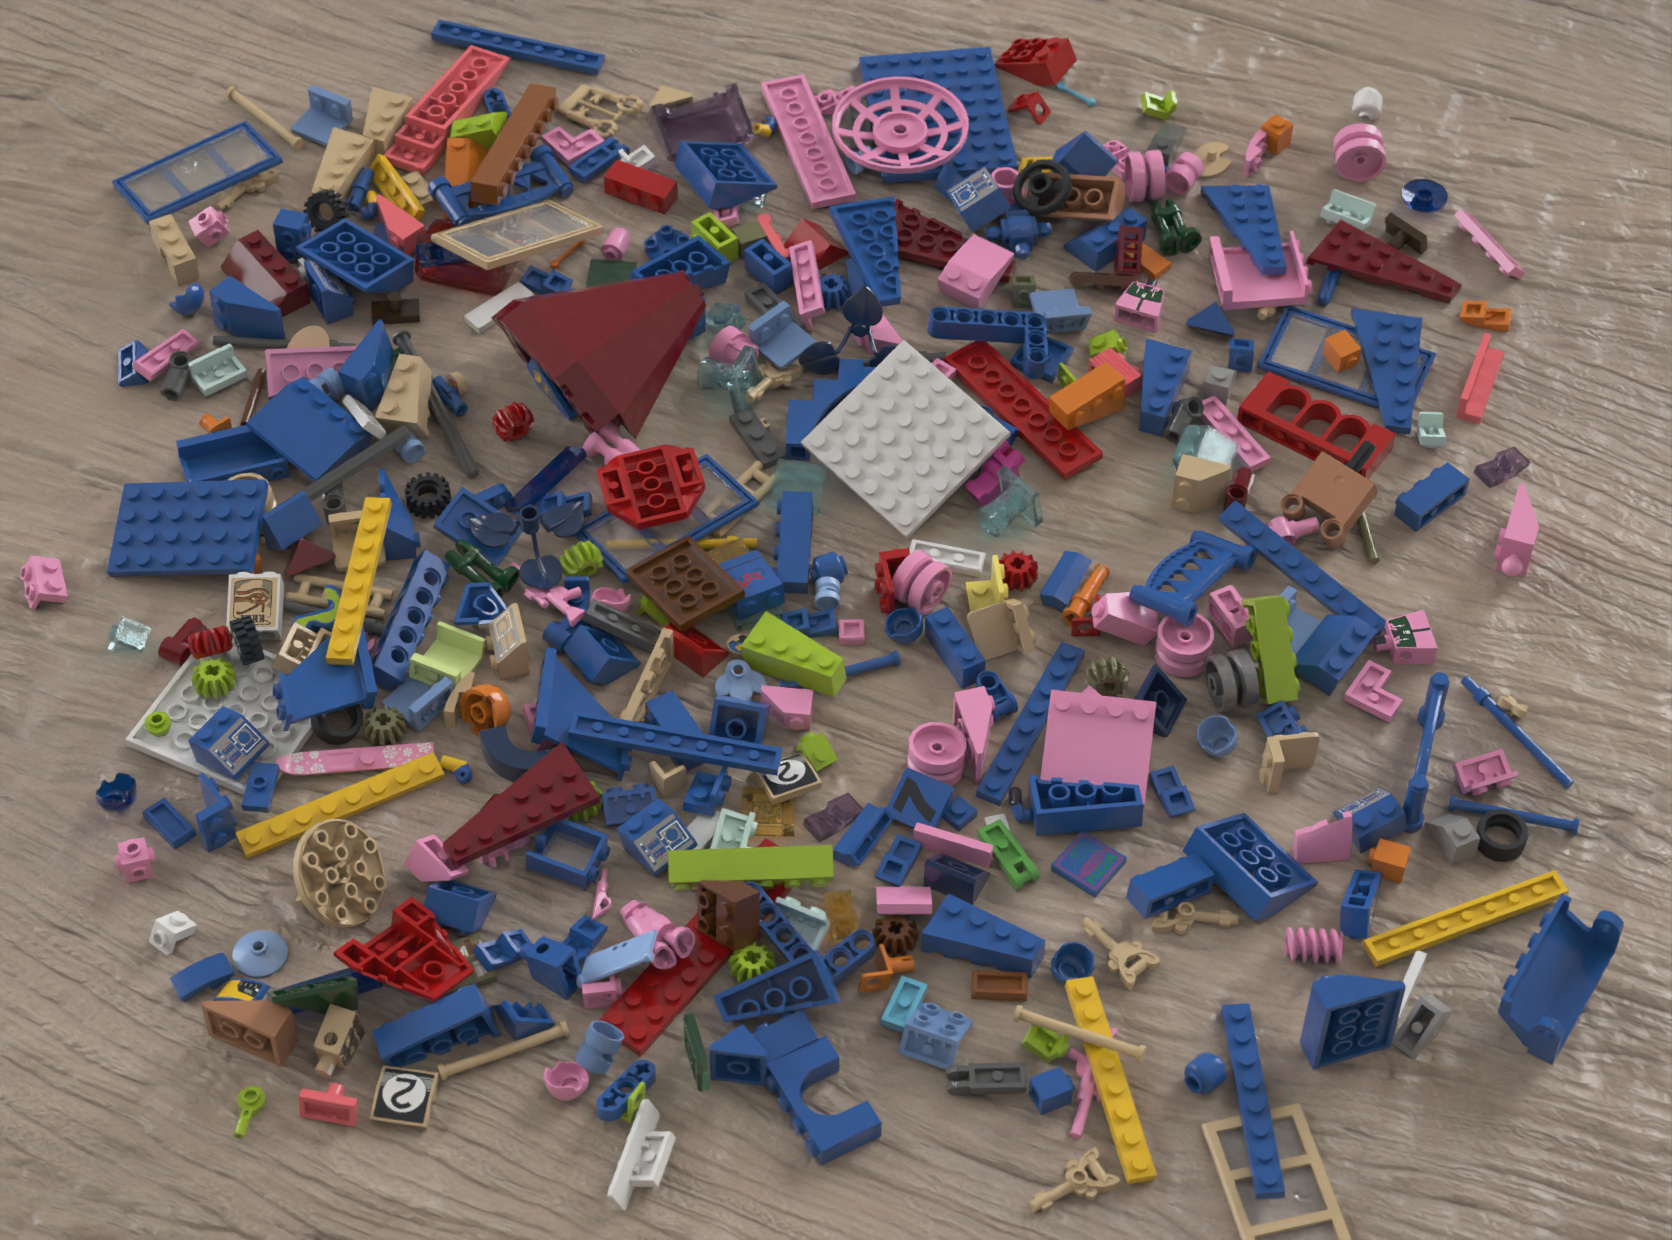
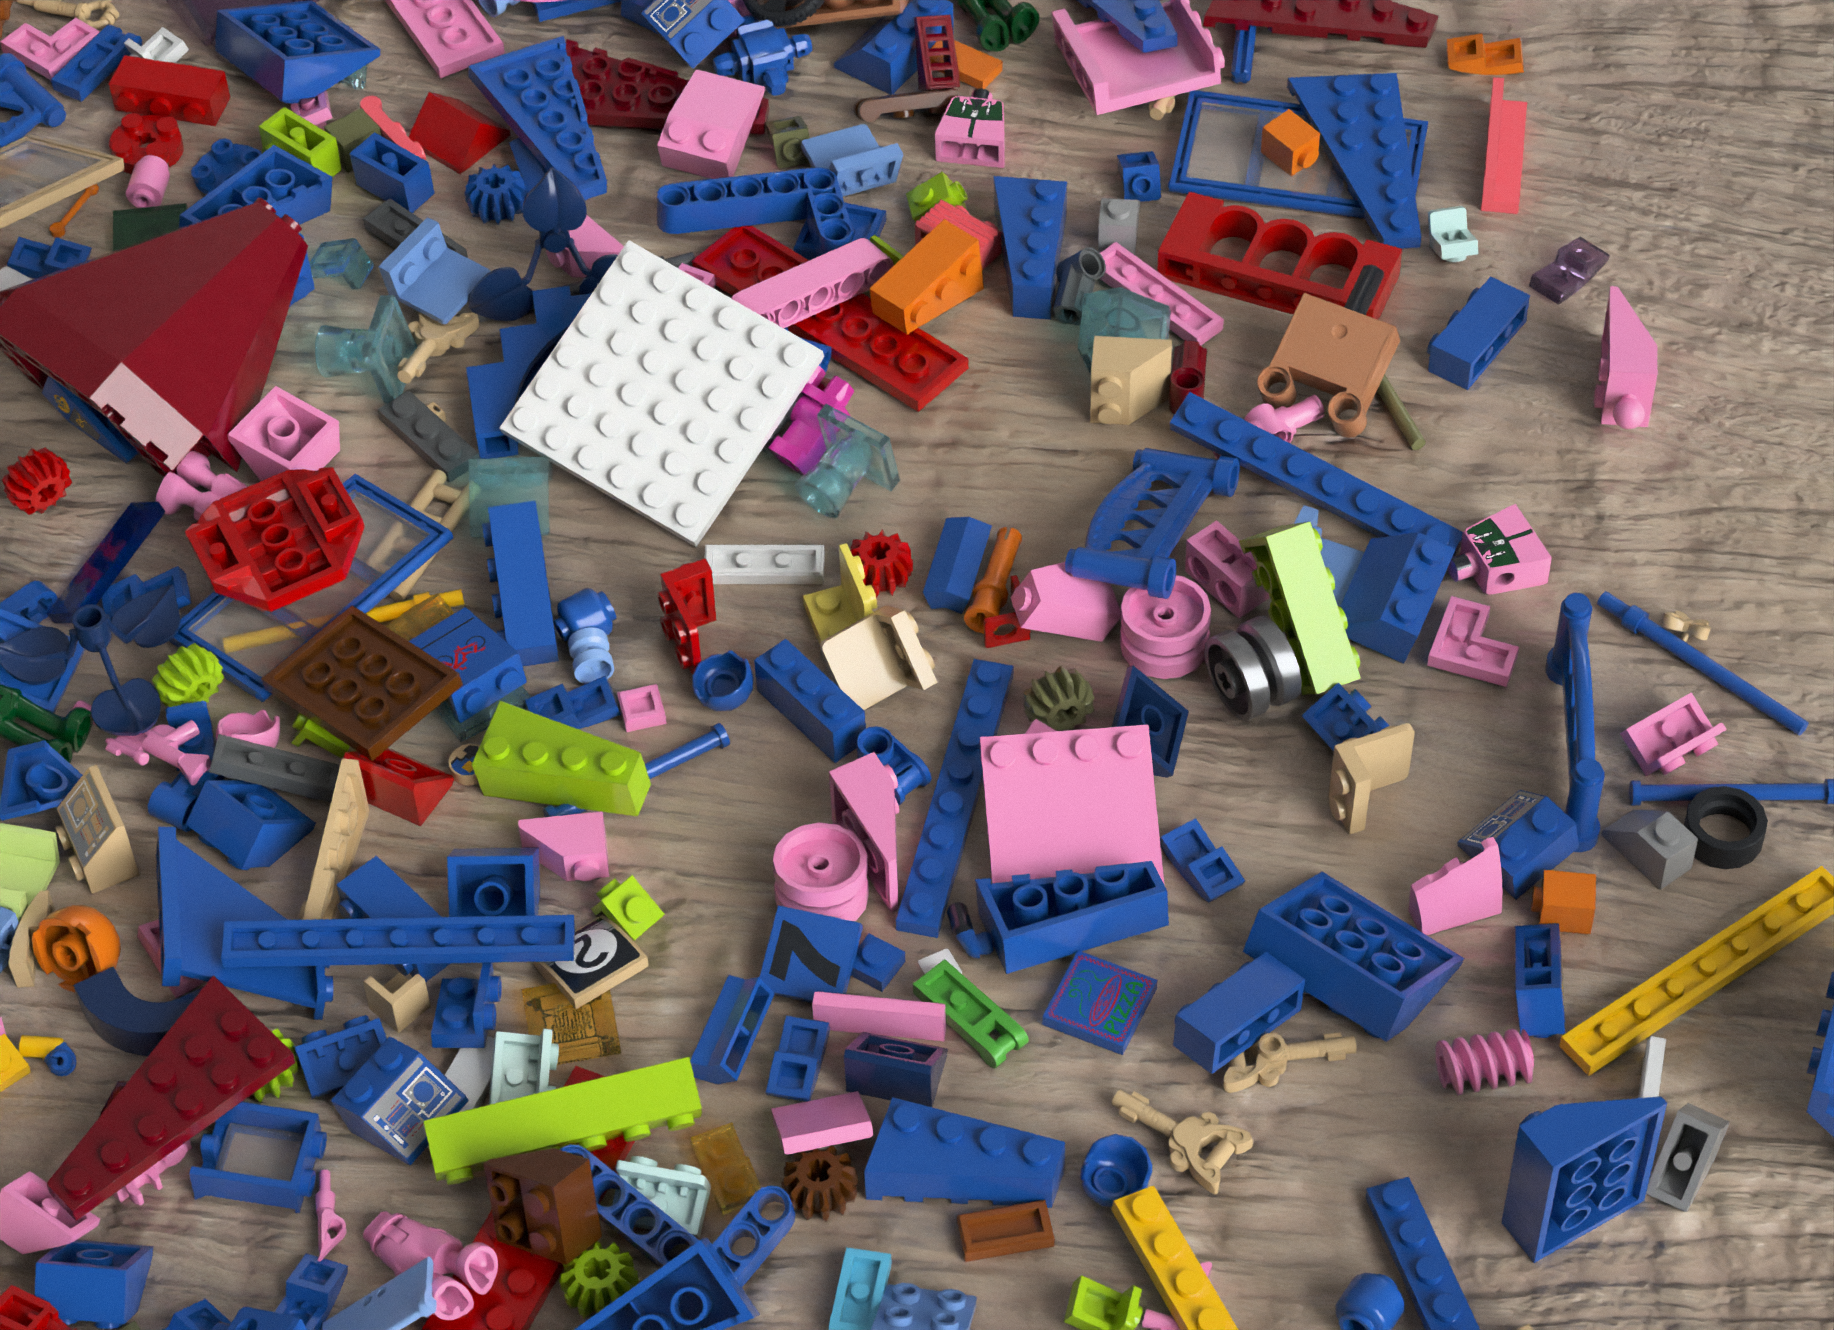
camera: 10 degrees left, 0 degrees up
(615, 209) = (137, 130): none -> red plate
(669, 422) = (285, 436): none -> bright pink slope
(729, 344) = (355, 300): bright pink piece -> none
(739, 685) = (481, 826): light blue plate -> none
(807, 282) = (457, 185): bright pink panel -> none
(838, 815) = (679, 1010): clear purple slope -> none
(886, 968) = (818, 1242): orange bracket -> none
(921, 582) = (736, 608): bright pink wheel -> none
(1017, 387) = (817, 283): none -> bright pink beam
(1079, 1033) = (1156, 1285): tan bar -> none
(1211, 320) = (1084, 132): blue slope -> none
(1217, 736) = (1251, 759): medium blue hair -> none

